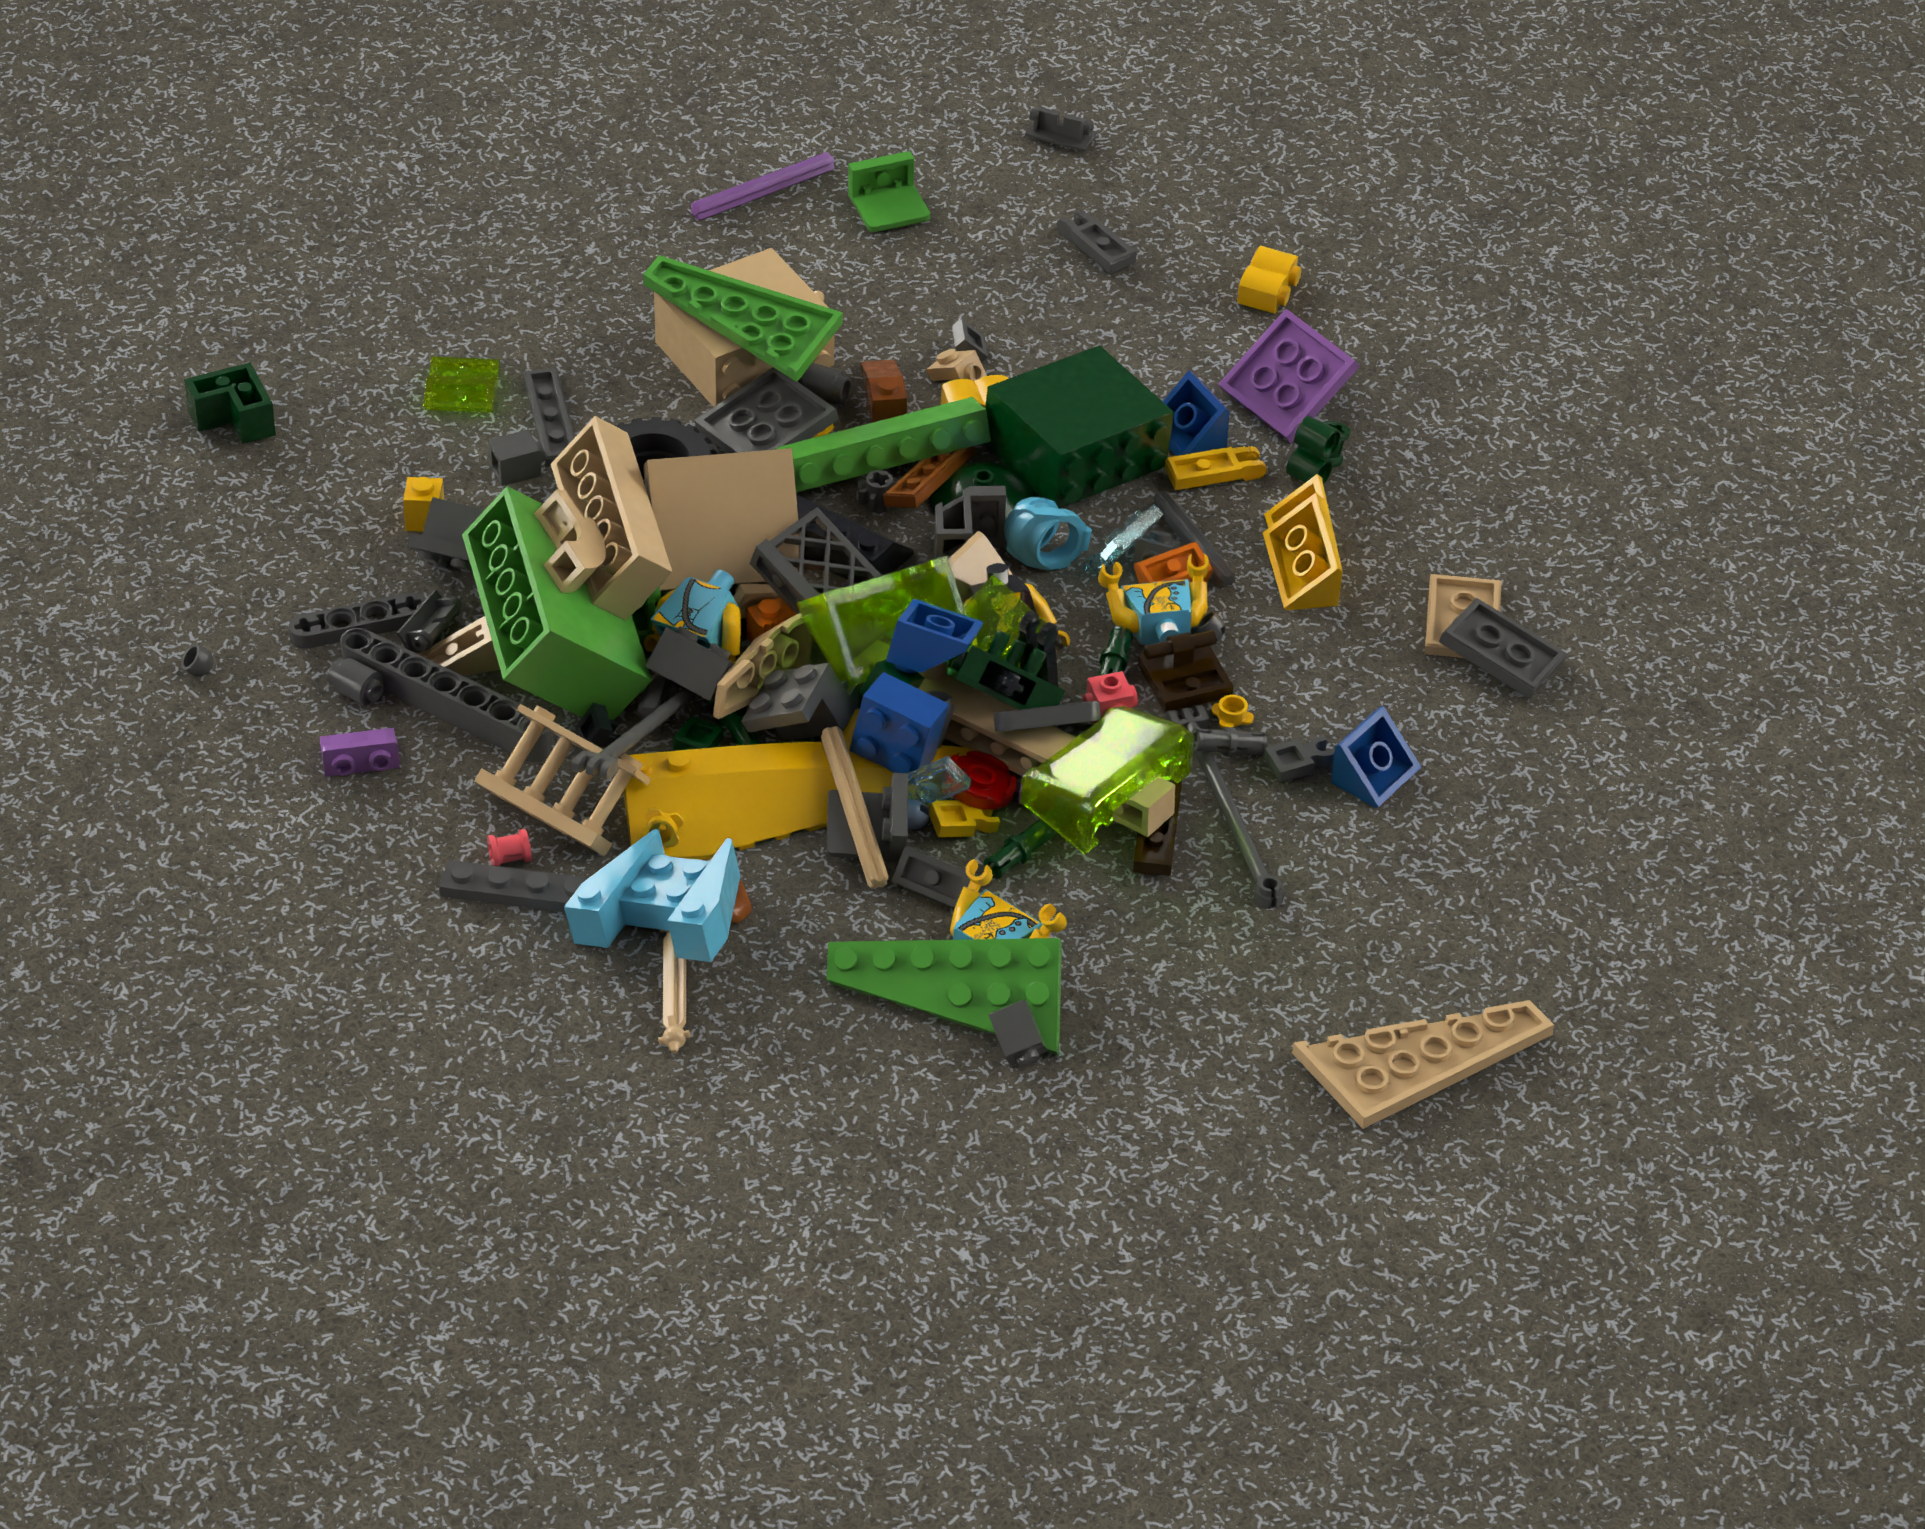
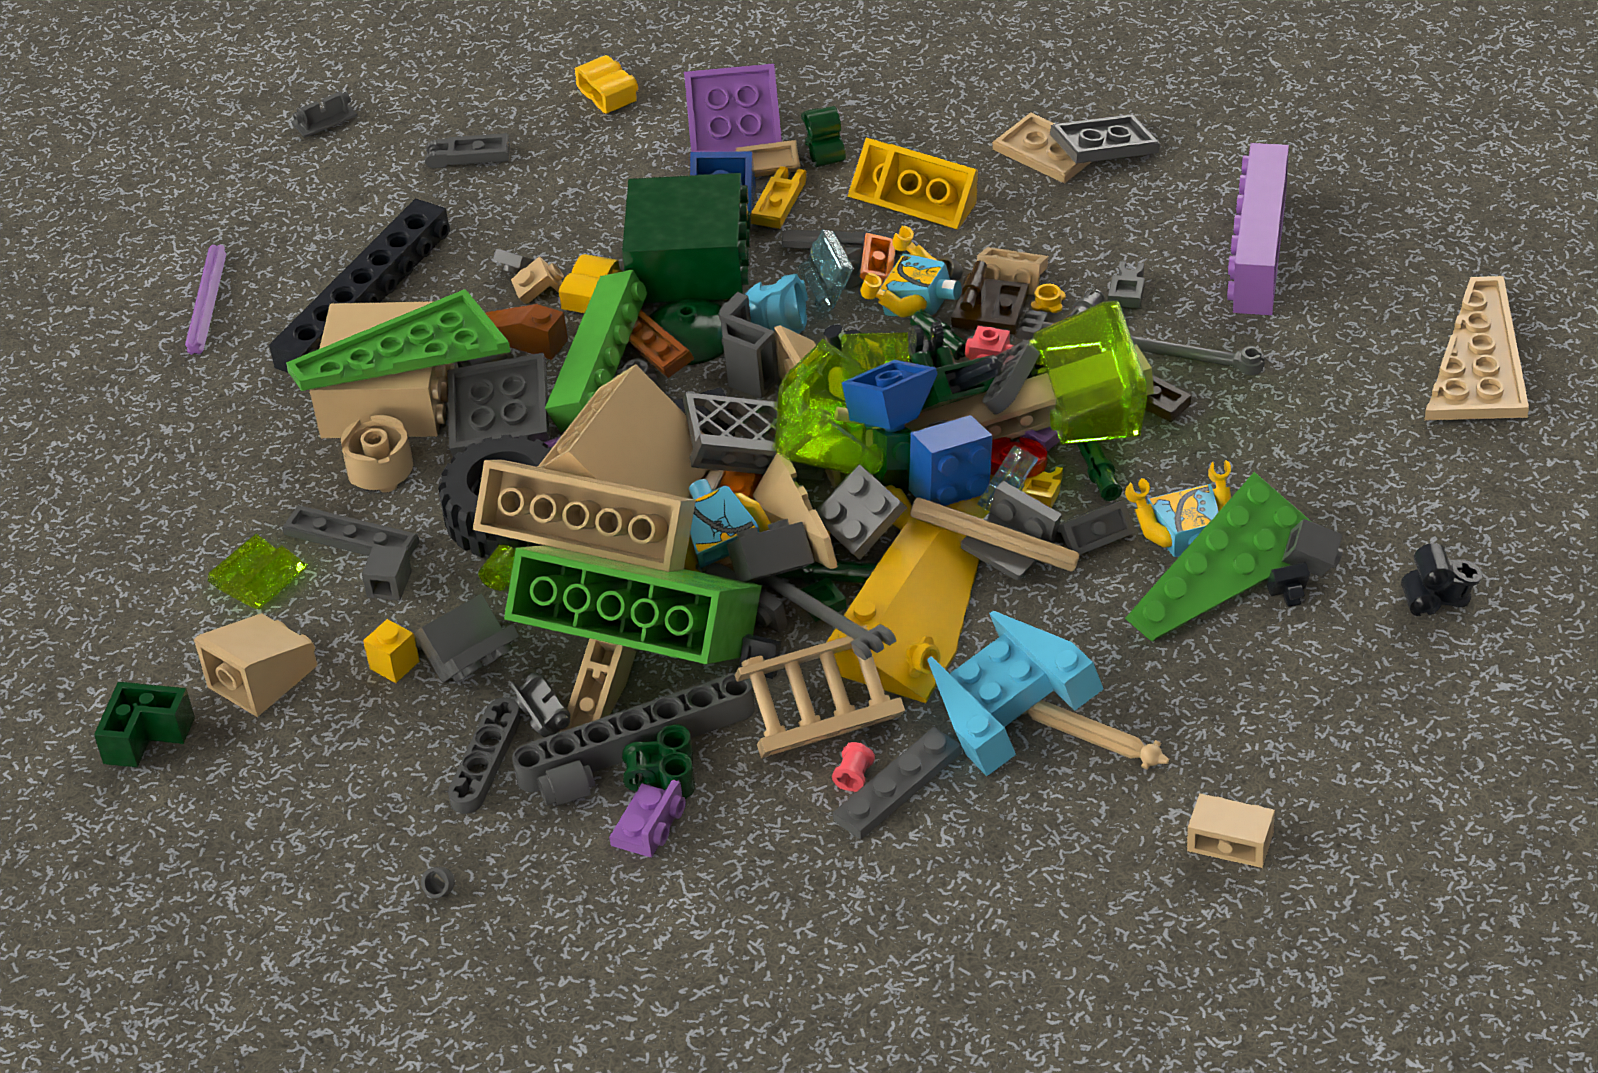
camera: 50 degrees left, 0 degrees up
(349, 430) = (254, 661): none -> tan slope
(424, 728) = (661, 761): none -> dark green piece
(576, 539) = (609, 542): tan arch -> none
(616, 1125) = (1230, 830): none -> tan brick
(645, 378) = (377, 453): none -> tan brick
(879, 263) = (367, 277): none -> black brick
(886, 192) = (298, 237): bright green bracket -> none
(967, 1040) = (1289, 582): none -> black tile
(1045, 1142) = (1438, 581): none -> black piece
(1251, 665) = (1014, 266): none -> tan bracket
(1259, 431) = (771, 156): none -> tan tile
(1373, 760) = (1164, 250): blue slope -> none
(1450, 810) = (1258, 229): none -> brick

